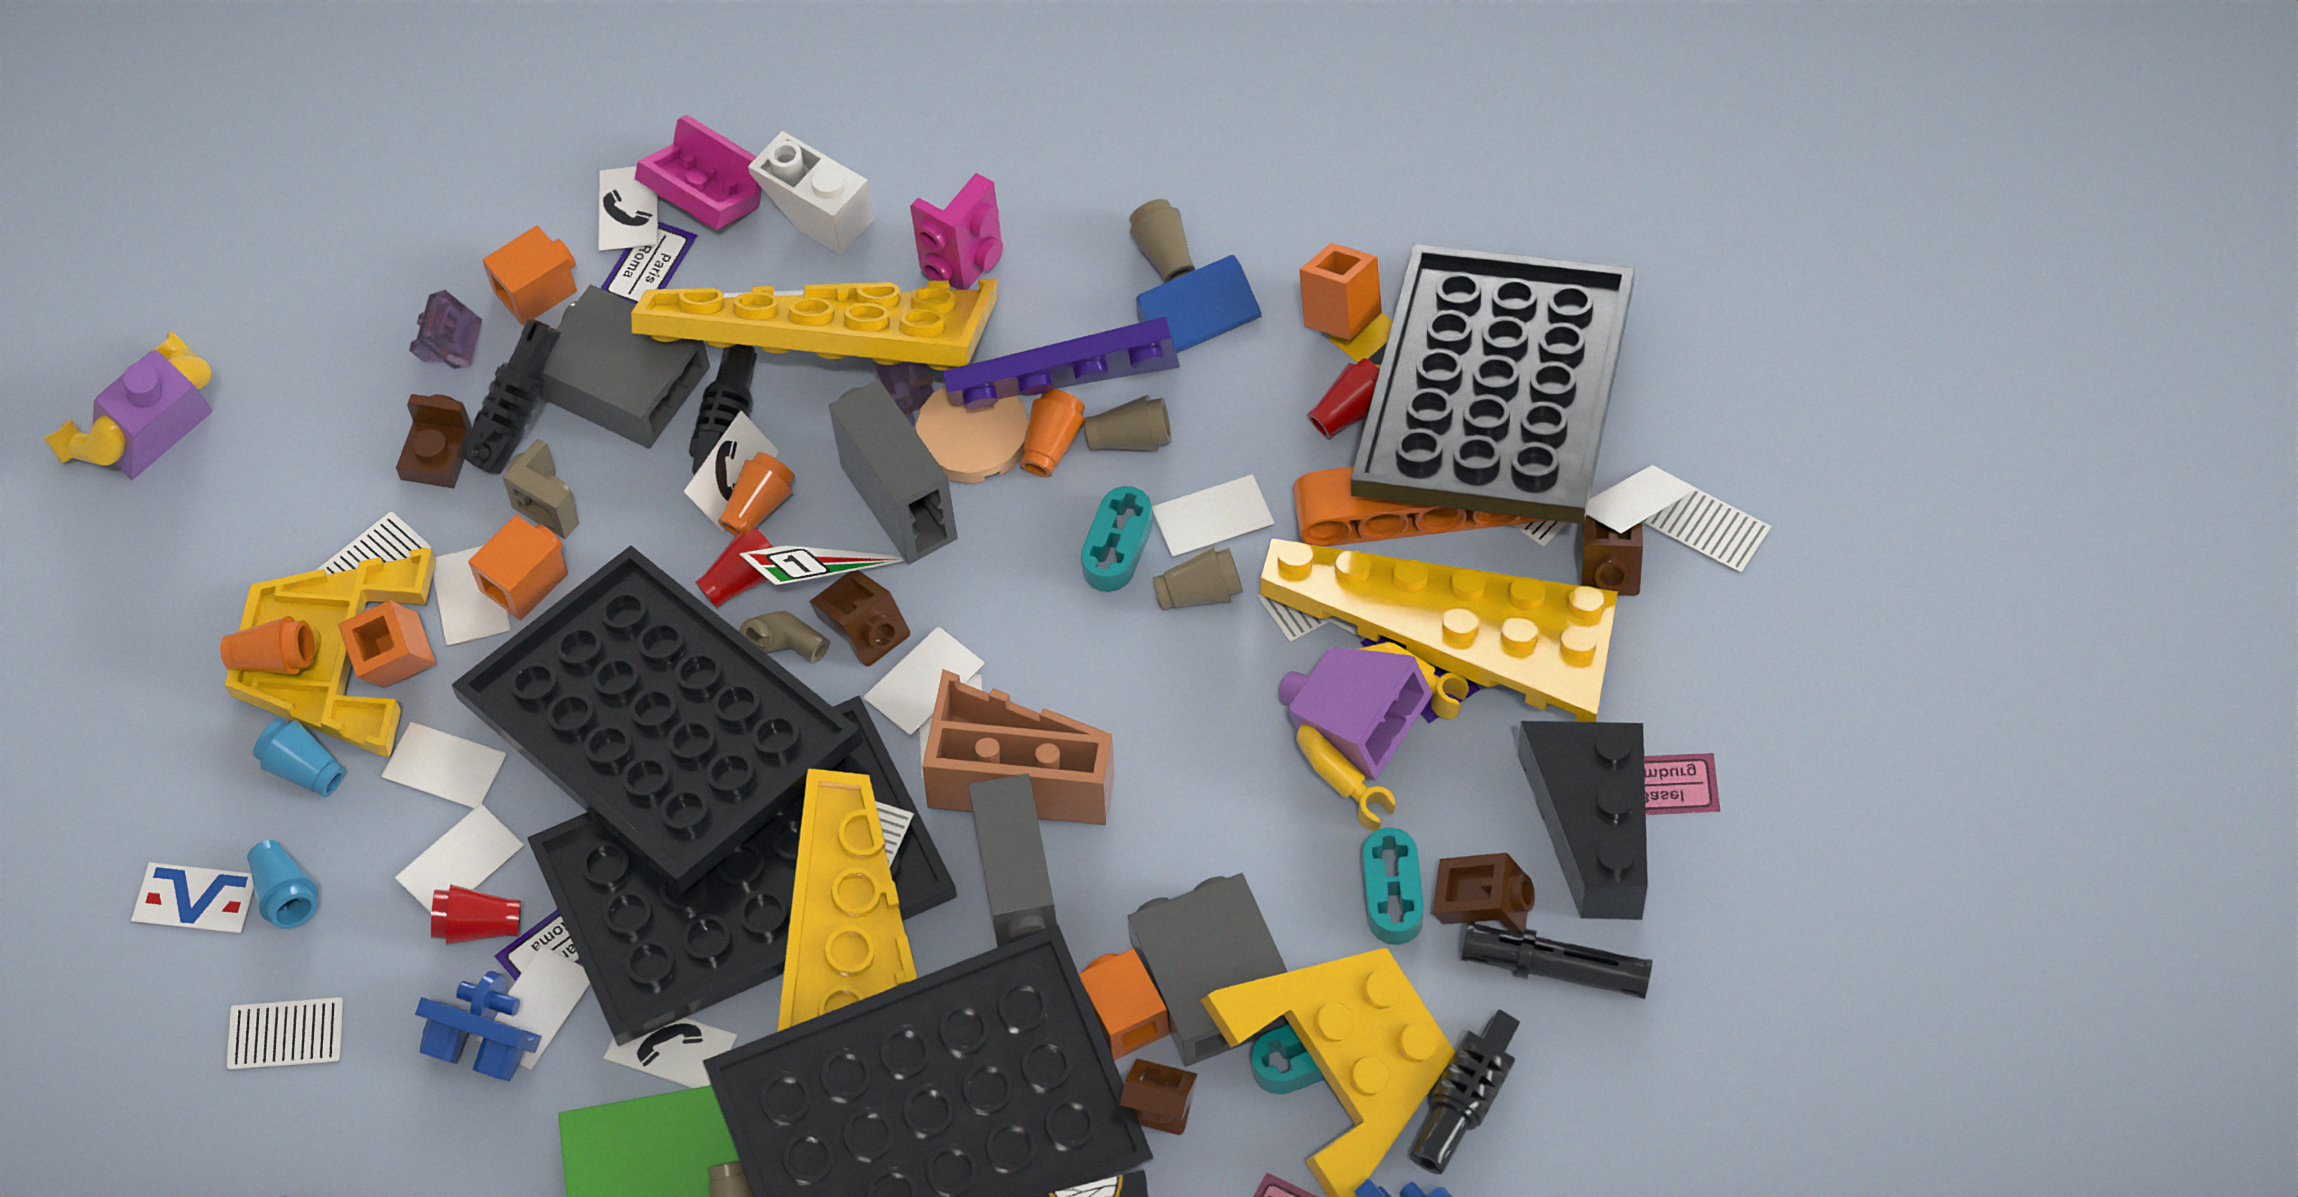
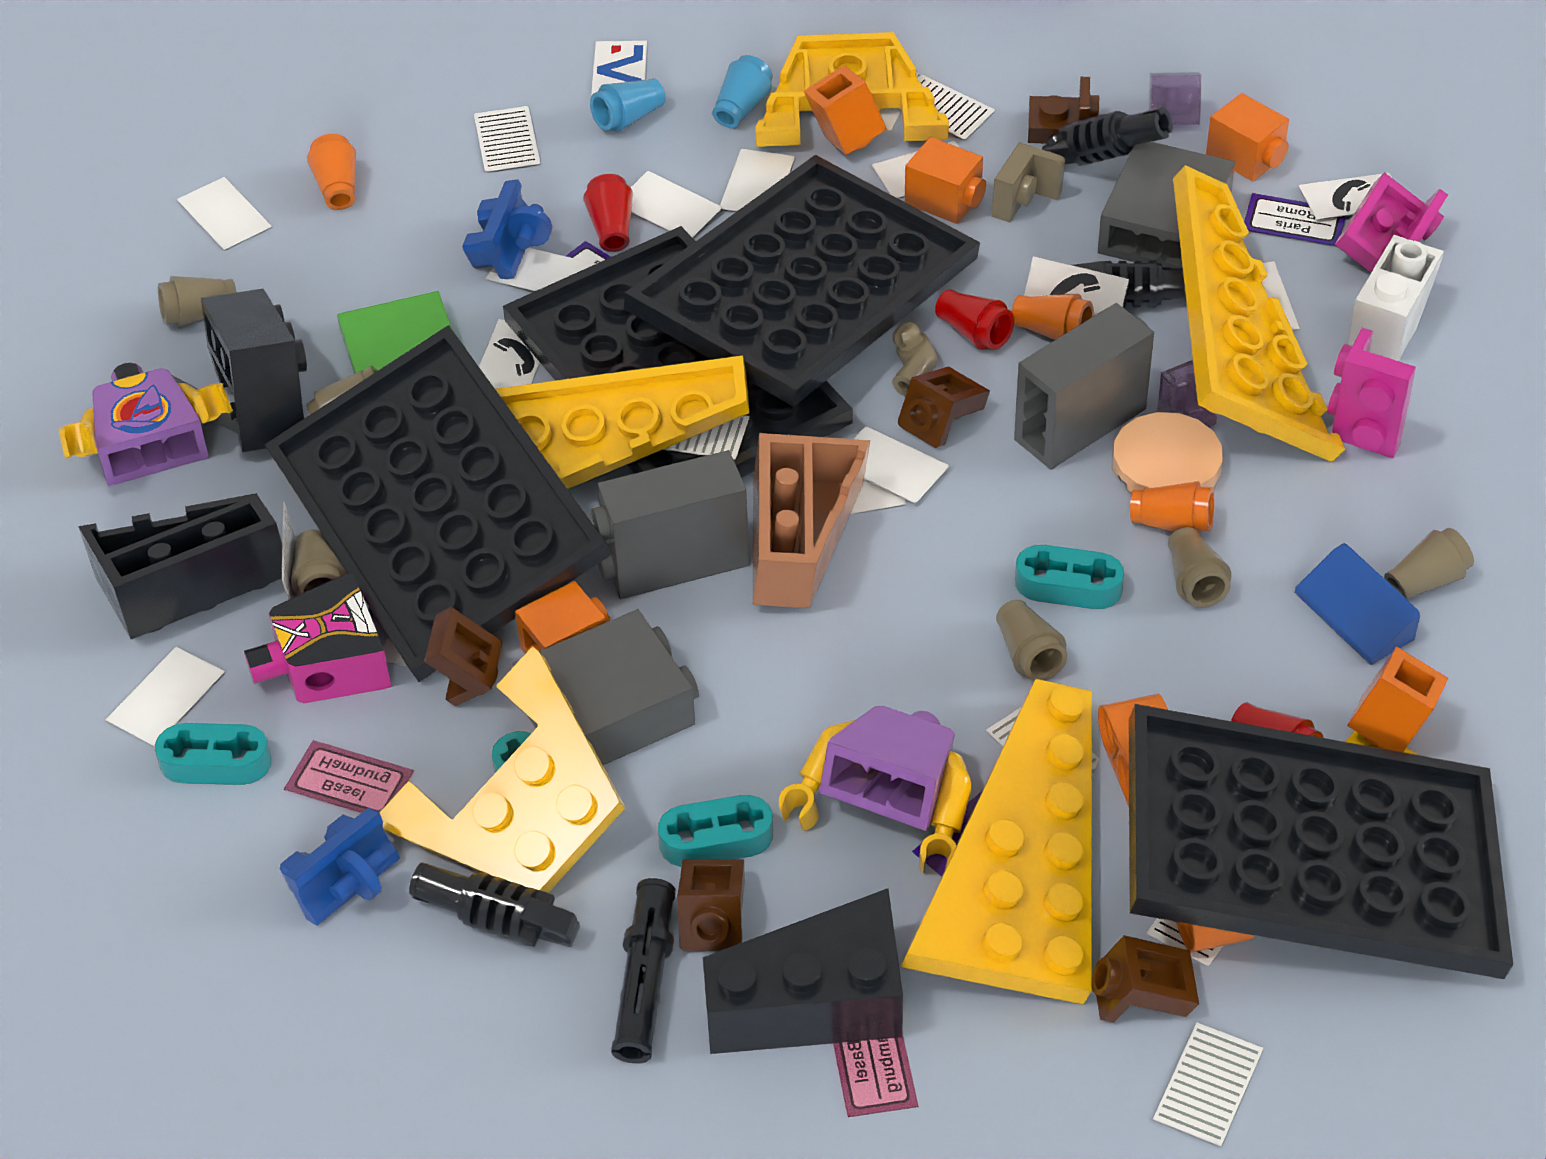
camera: 80 degrees right, 10 degrees down
(270, 647) = (825, 44): orange cone -> none
(796, 563) = (979, 349): sticker -> none
(1073, 362) = (1235, 493): dark purple wing -> none
(1212, 515) = (1120, 653): white sticker -> none
(1637, 498) = (1212, 998): white sticker -> none

